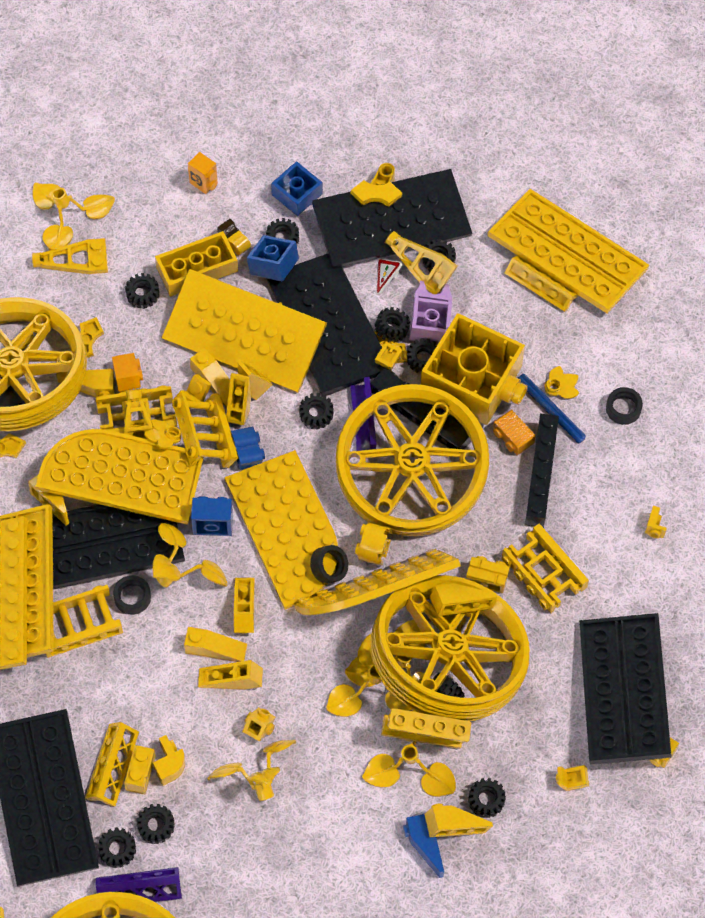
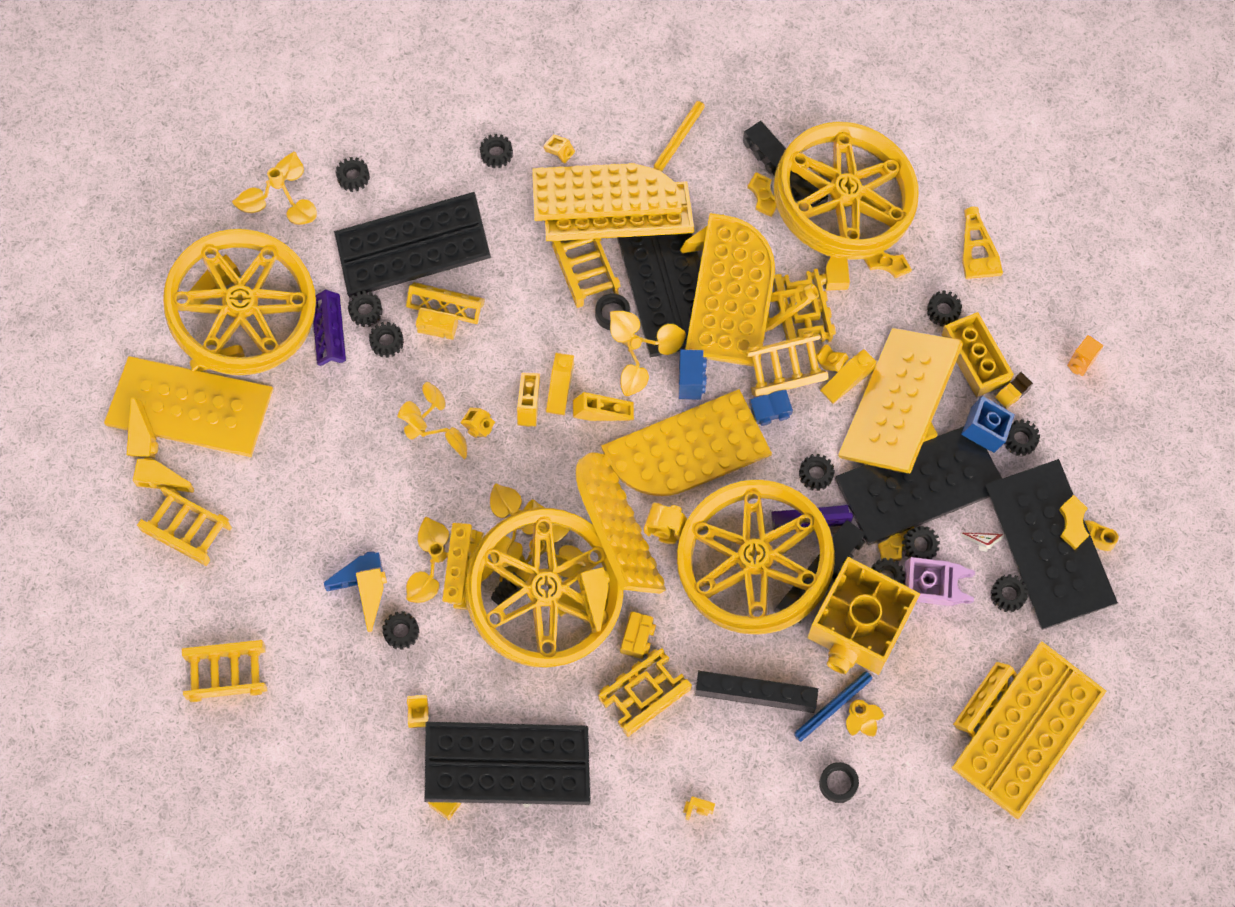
camera: 90 degrees right, 5 degrees up
(49, 194) = (1046, 219): yellow plant -> none
(127, 372) = (847, 294): light orange brick -> none
(163, 434) = (775, 323): yellow plate -> none
(172, 765) = (444, 352): yellow brick -> none
(238, 399) = (815, 394): yellow slope -> none
(258, 380) = (841, 406): yellow slope -> none
(296, 188) = (1077, 448): blue brick -> none
(317, 567) = (653, 472): black tyre -> none
(389, 355) = (880, 538): yellow bracket -> none
(439, 274) = (989, 592): yellow plate -> none
(513, 432) = (800, 665): light orange brick -> none

